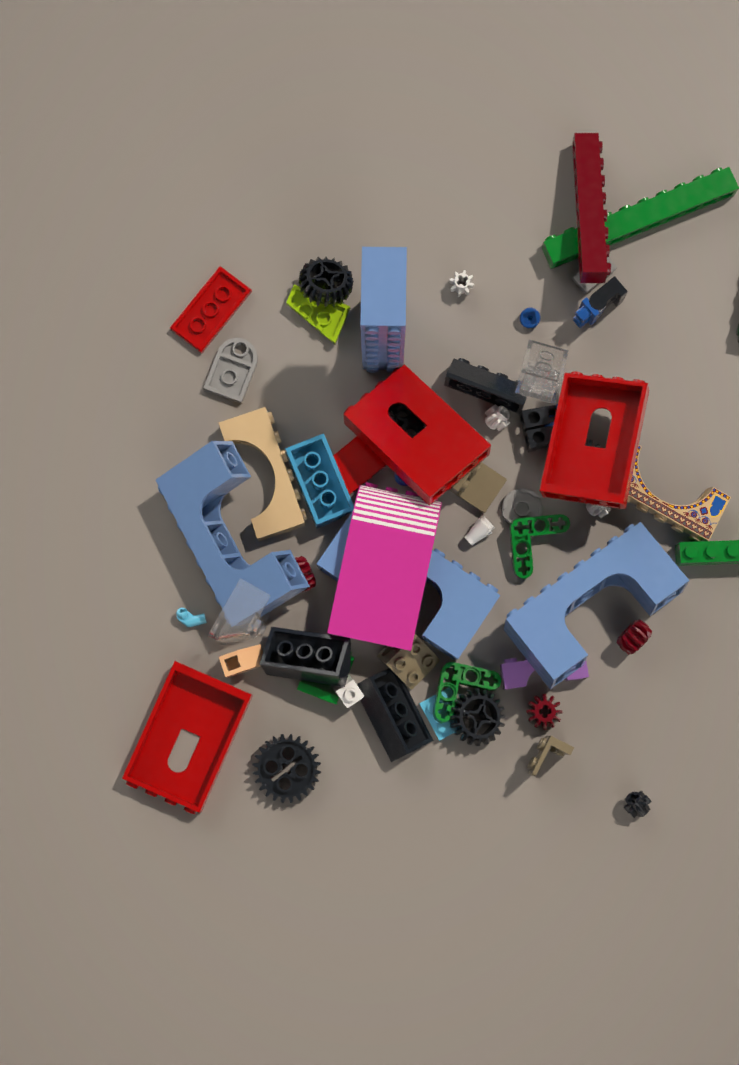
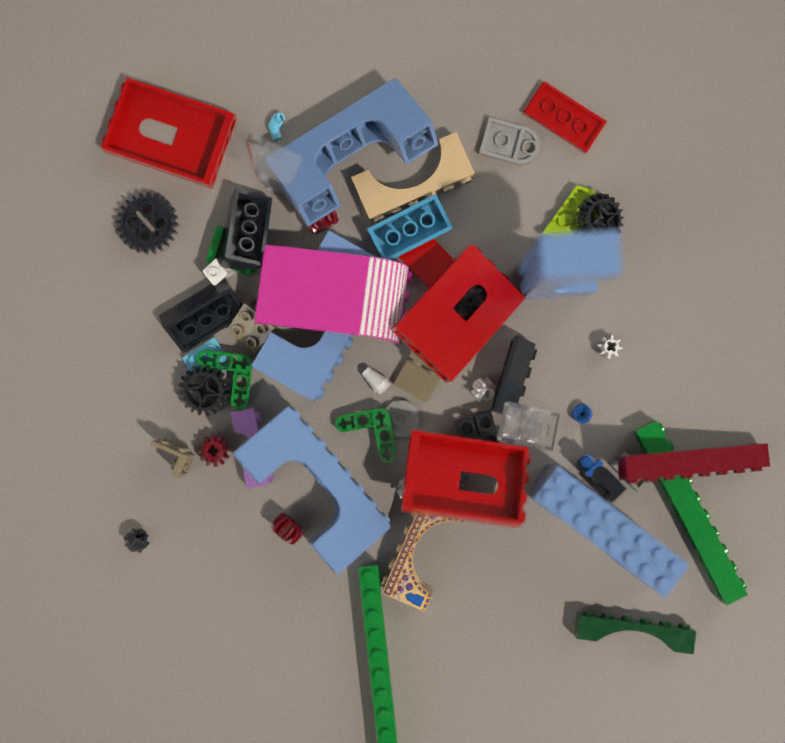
camera: 85 degrees right, 5 degrees up
(241, 660) = (239, 172): light nougat slope -> none
(655, 299) = (608, 529): none -> medium blue arch

